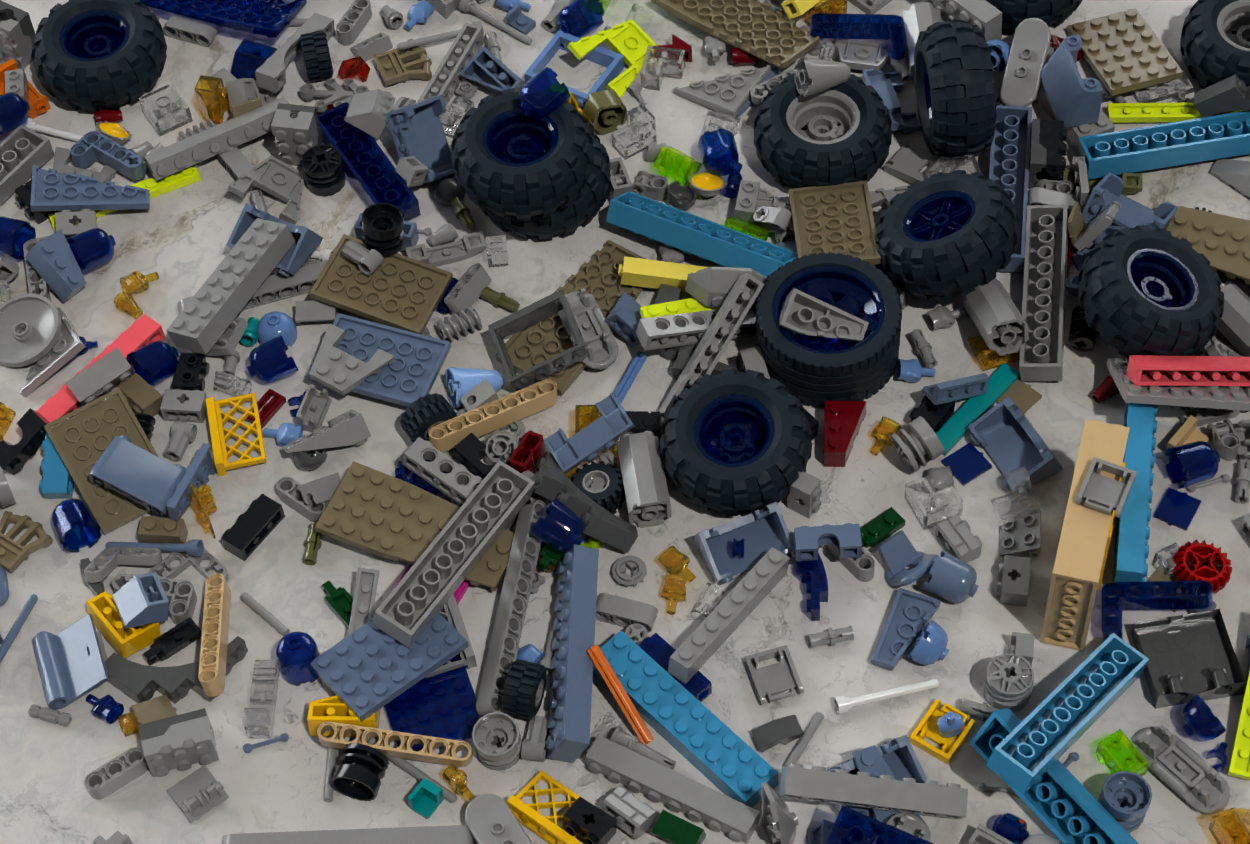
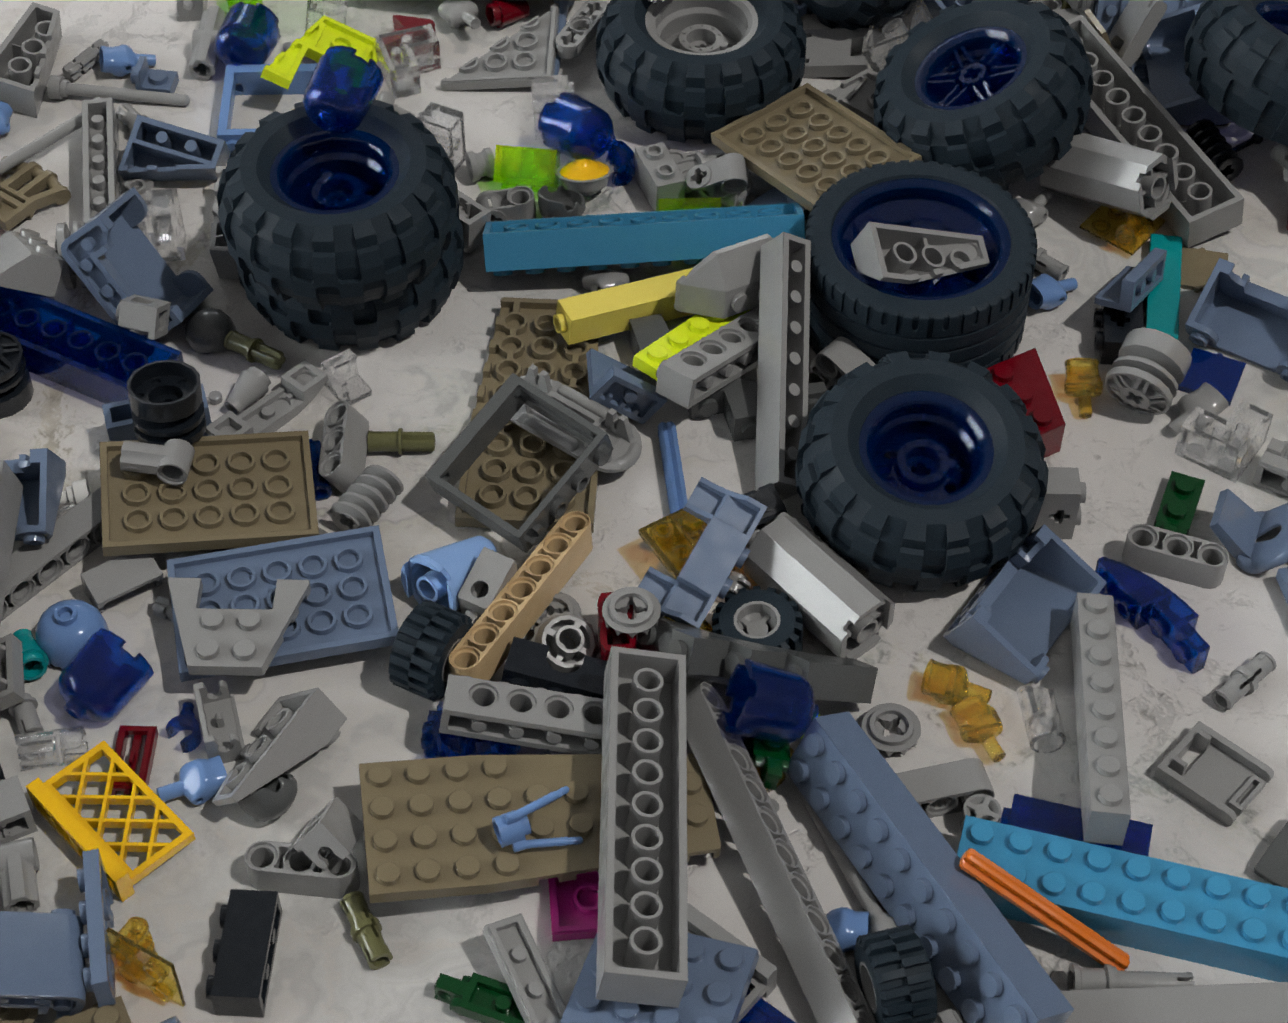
camera: 35 degrees left, 5 degrees down
(397, 527) = (514, 826): none -> medium blue plant
(532, 440) = (617, 605): none -> light grey gear
(738, 548) = (1022, 620): clear blue bush -> none
(843, 537) = (1126, 558): sand blue arch -> none

